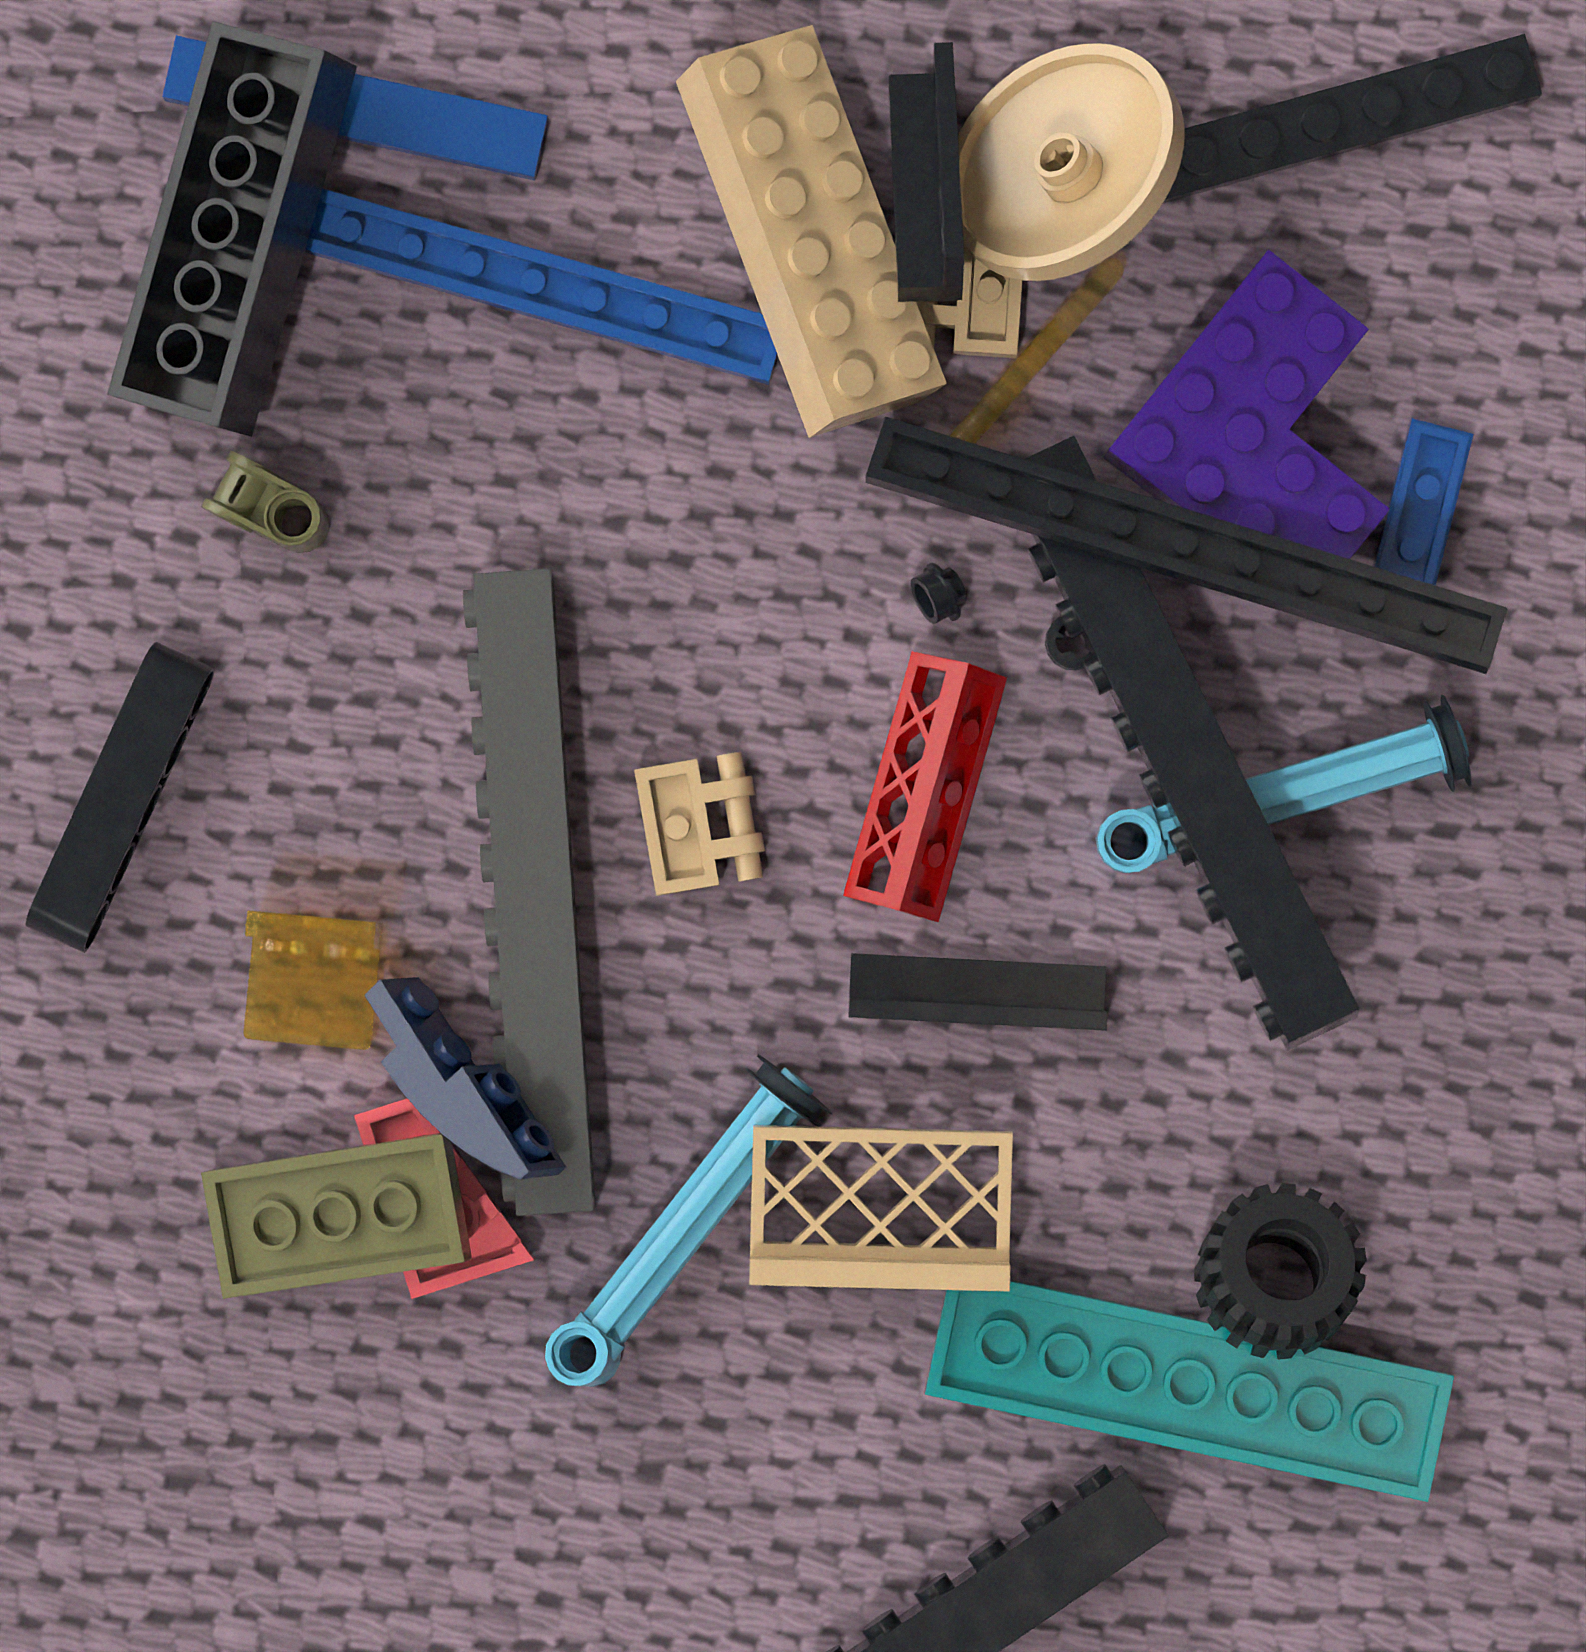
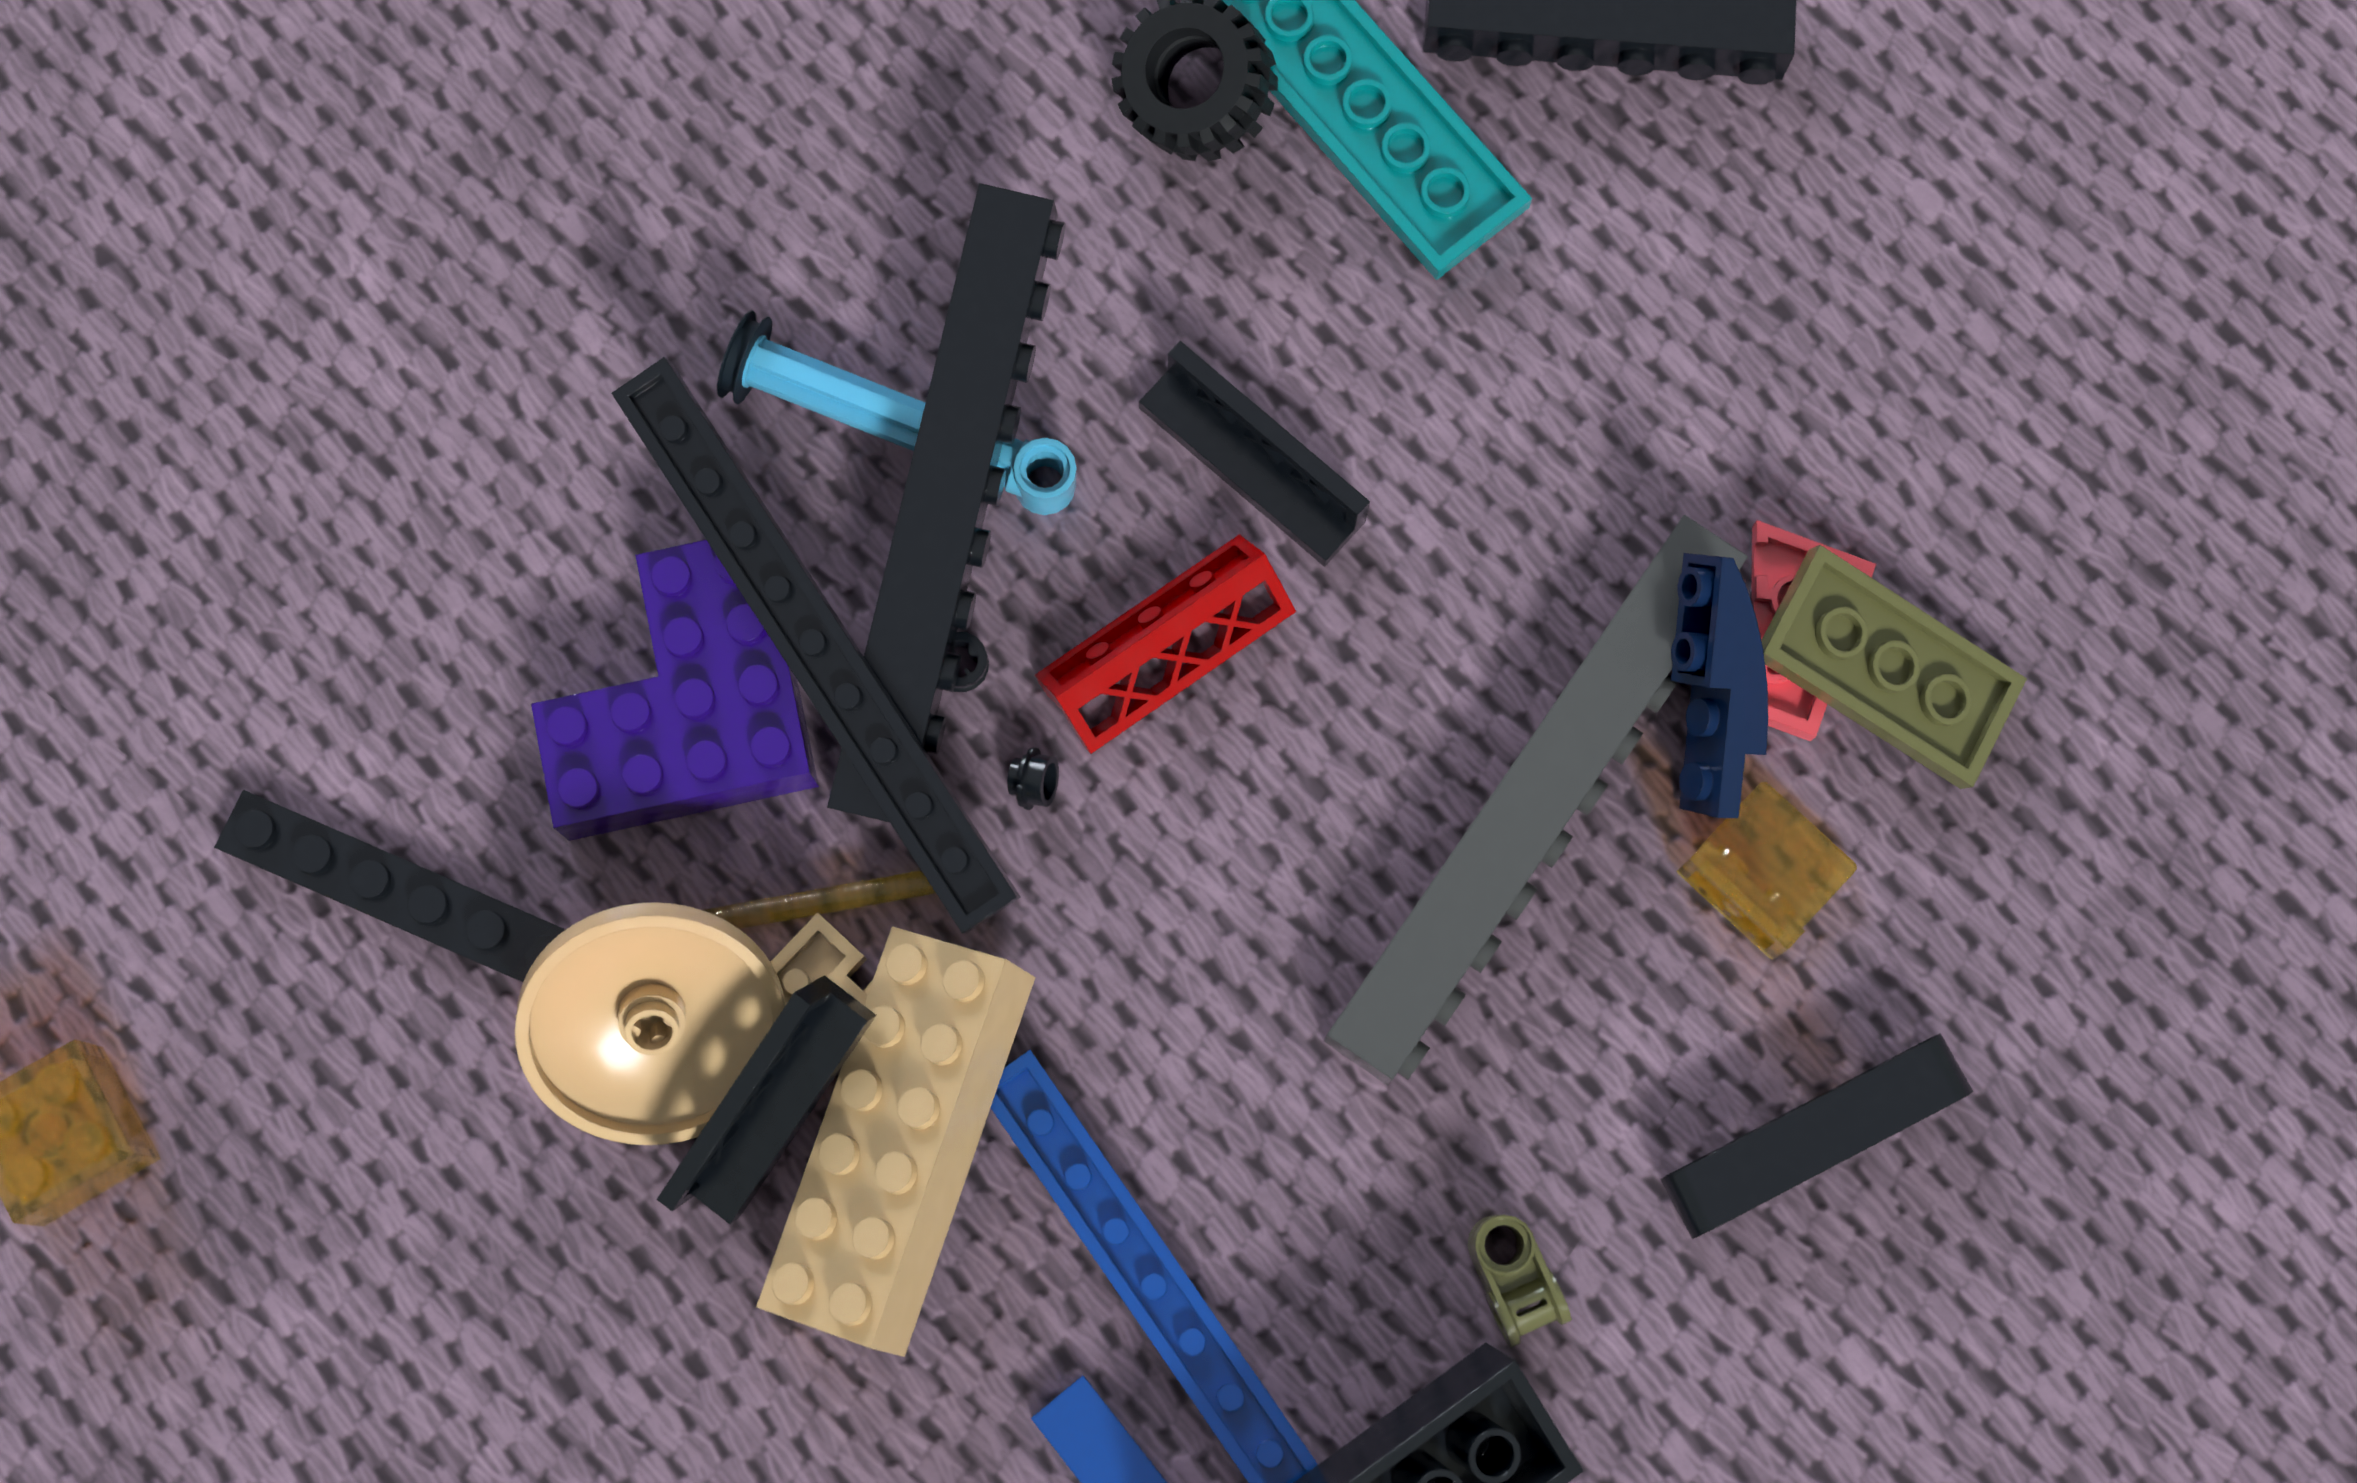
camera: 140 degrees left, 10 degrees down
(679, 827) = (1383, 759): tan plate -> none
(680, 1229) = (1615, 456): medium azure piece -> none
(881, 1264) = (1496, 303): tan fence -> none
(1423, 500) = (605, 555): blue tile -> none

